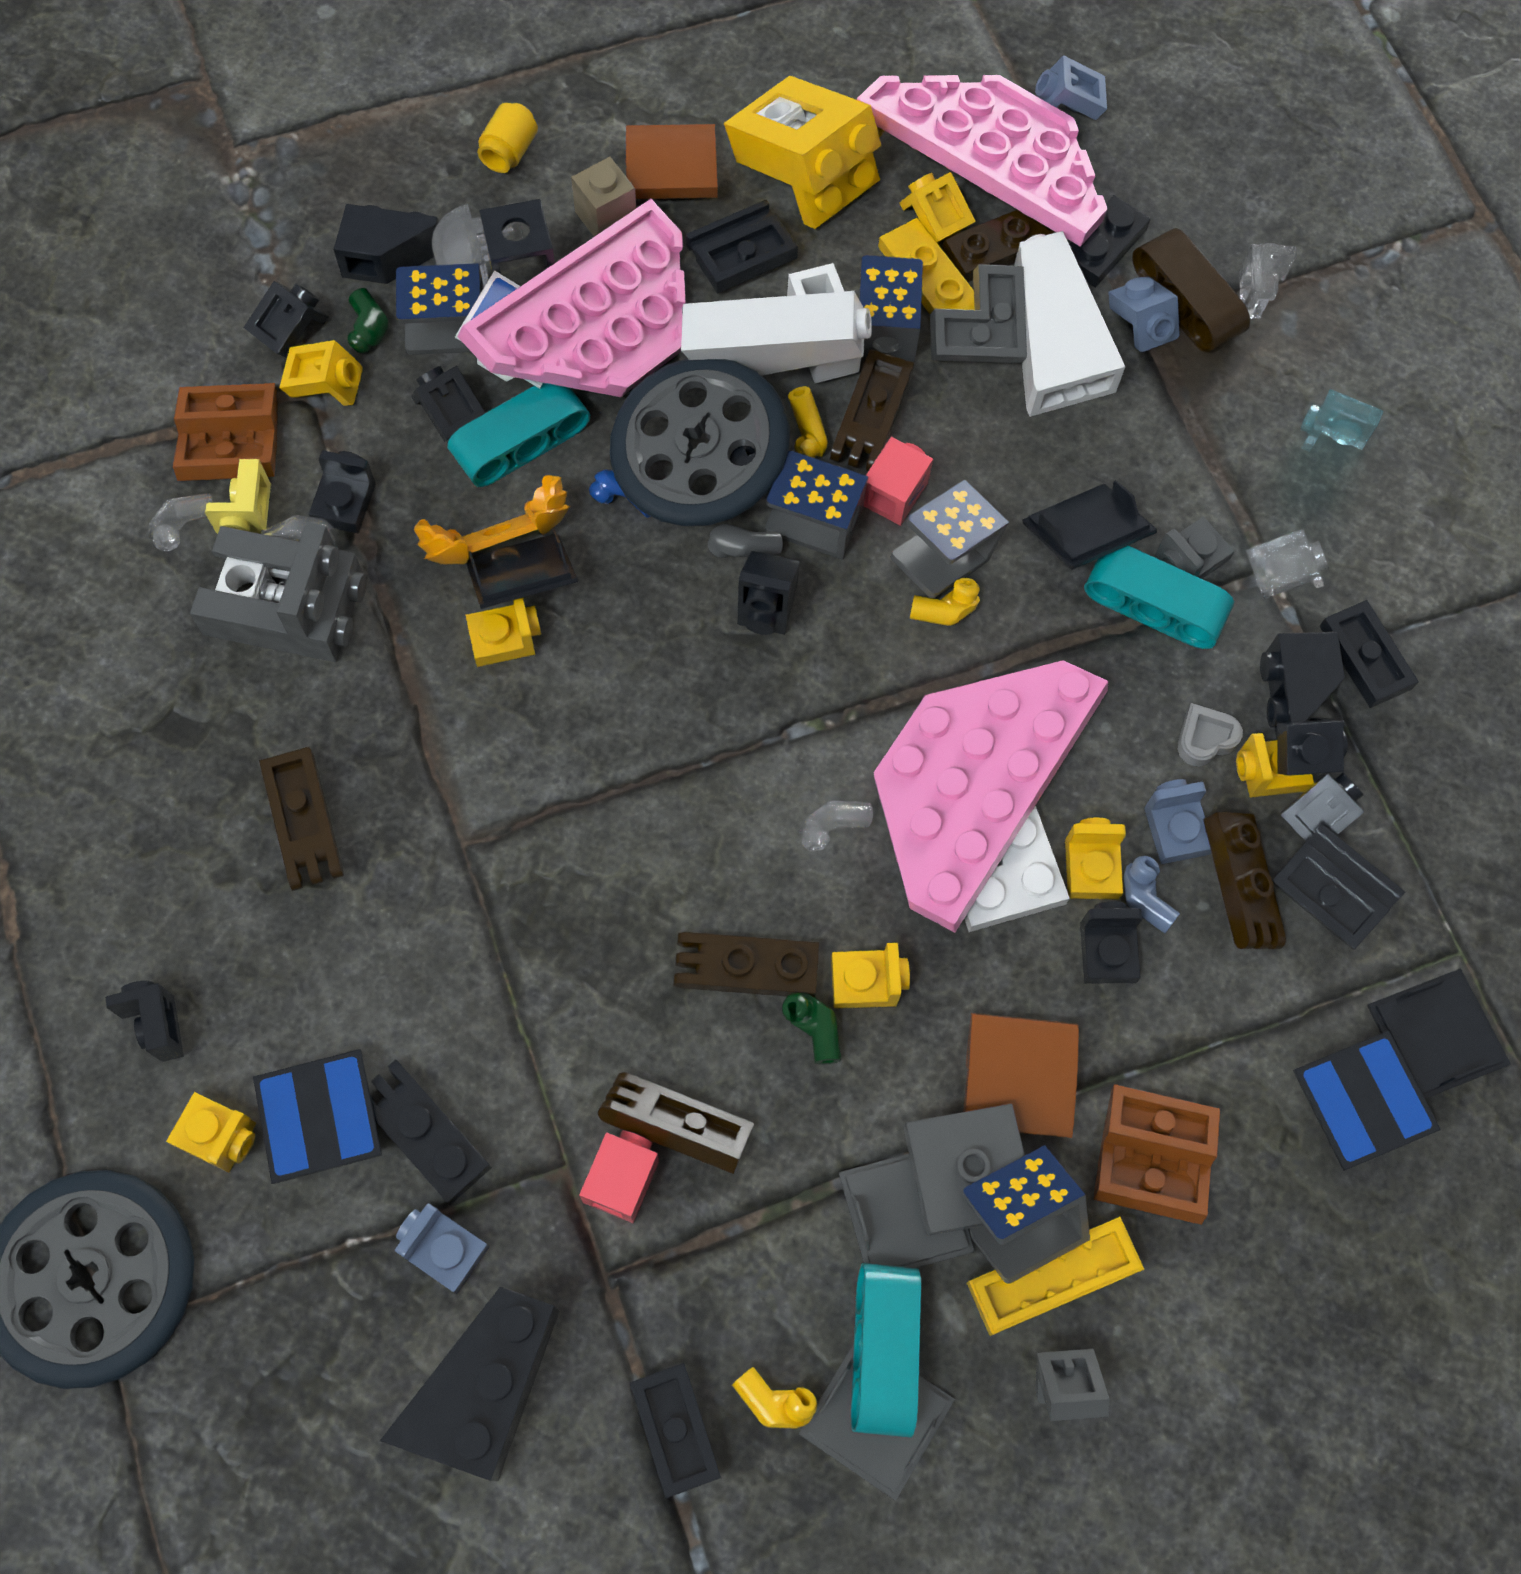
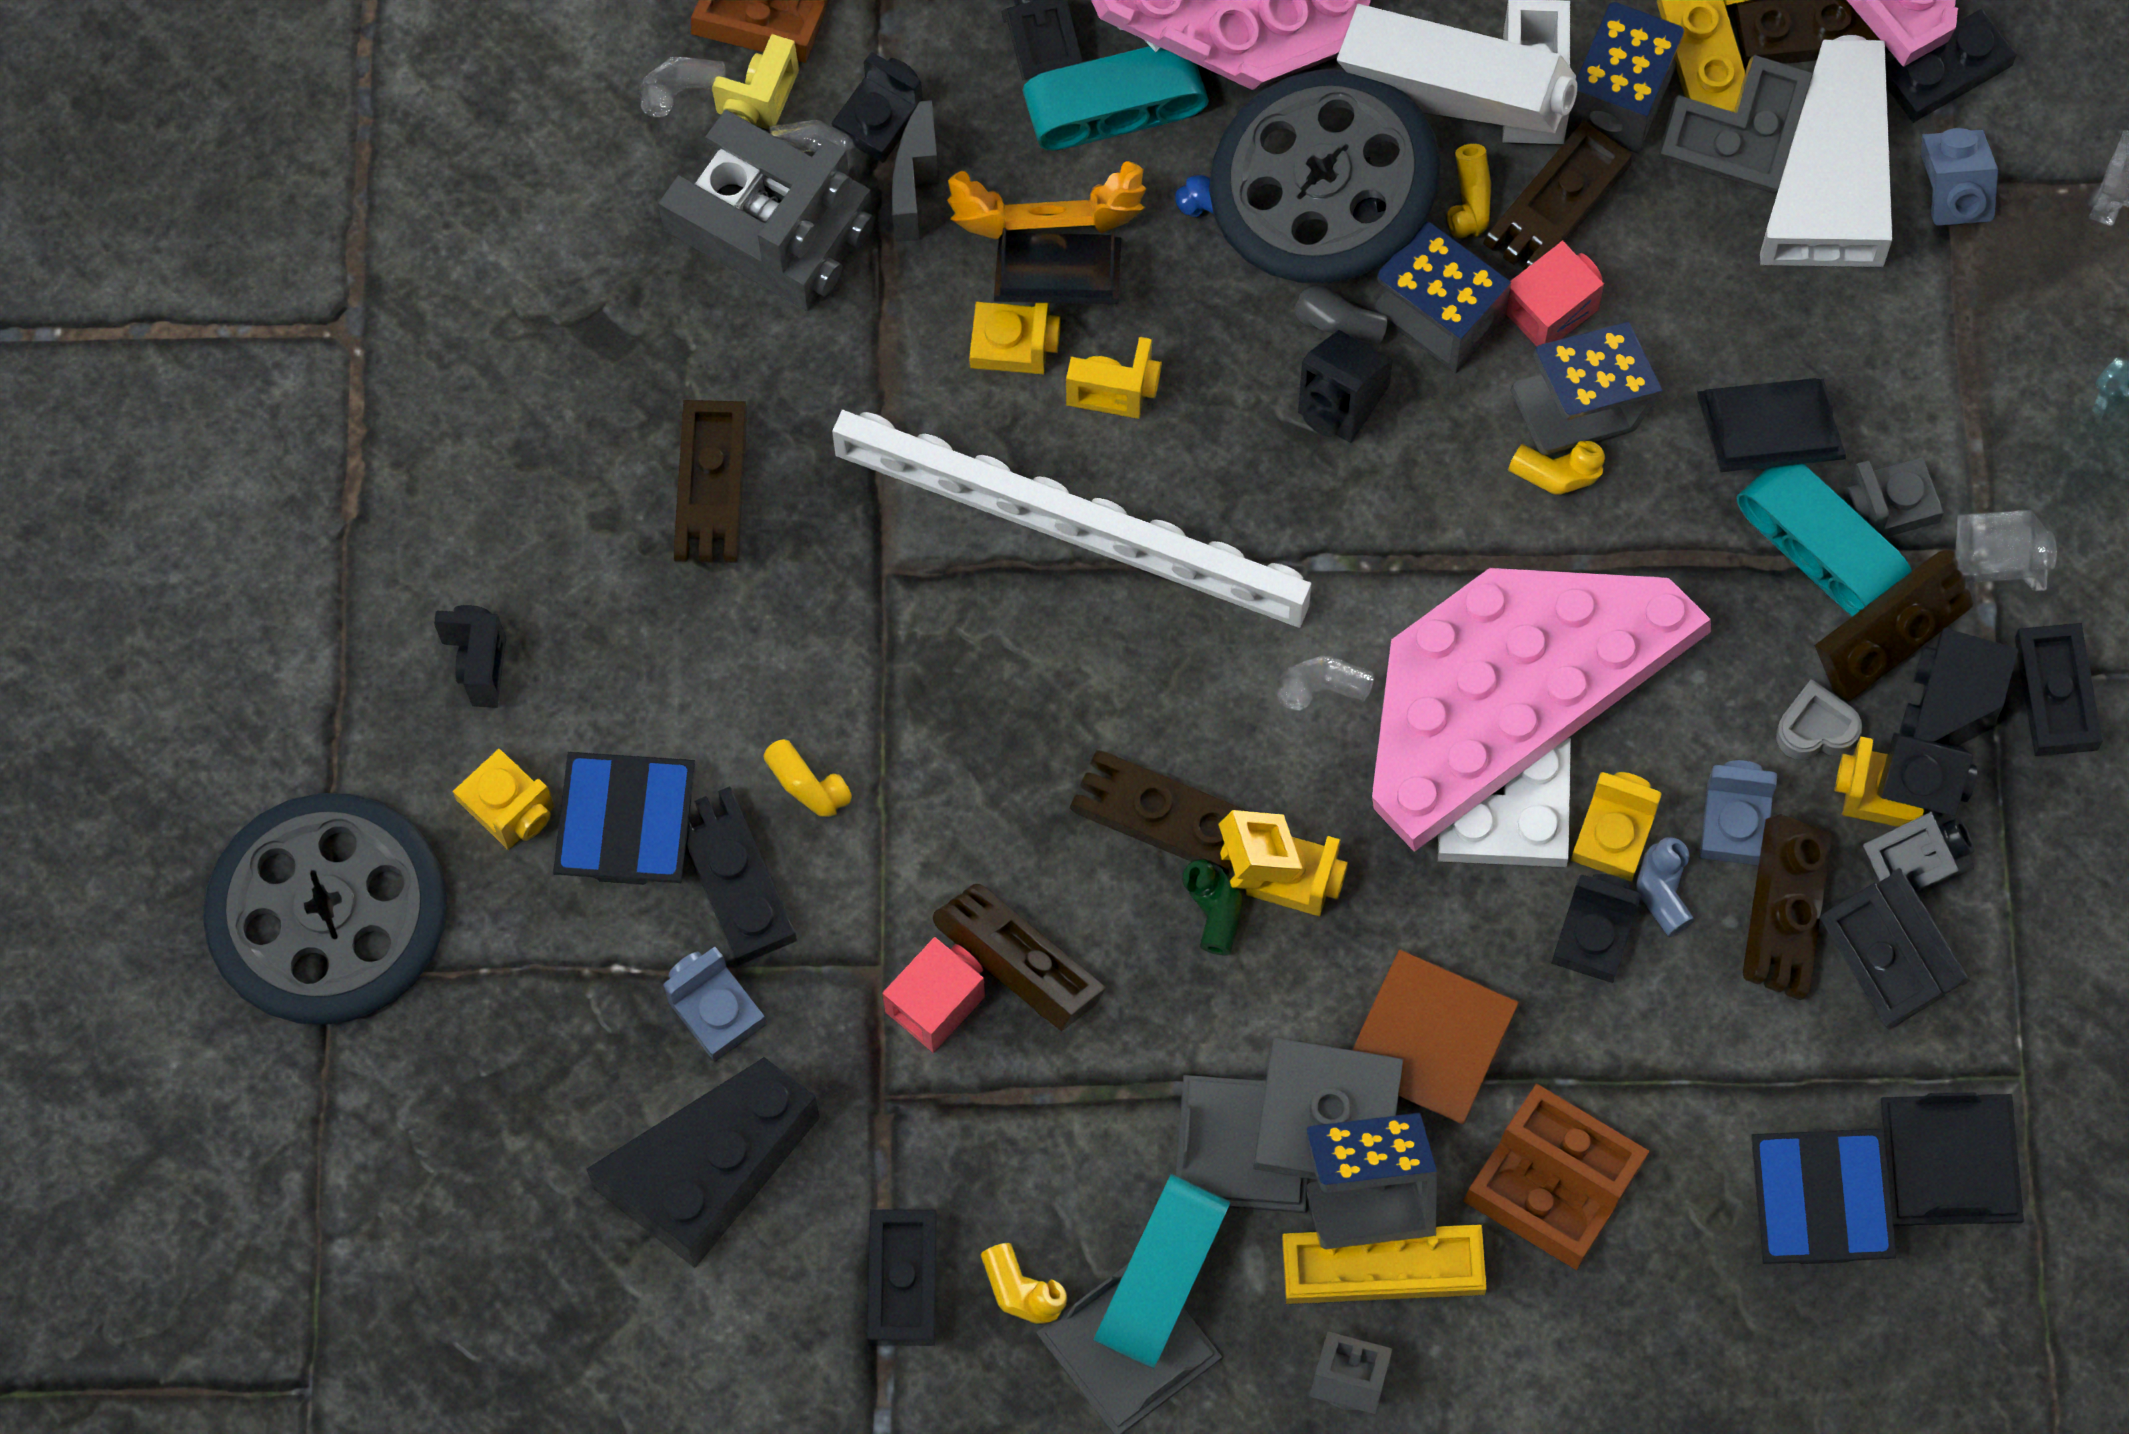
camera: 25 degrees right, 0 degrees up
(384, 527) = (913, 166): none -> dark grey slope
(453, 1037) = (801, 783): none -> yellow arm
(577, 755) = (1089, 524): none -> white plate
(591, 647) = (1112, 388): none -> yellow bracket
(838, 971) = (1258, 848): none -> yellow tile
(1206, 303) = (2031, 164): dark brown beam -> none
(1235, 644) = (1894, 625): none -> dark brown hinge

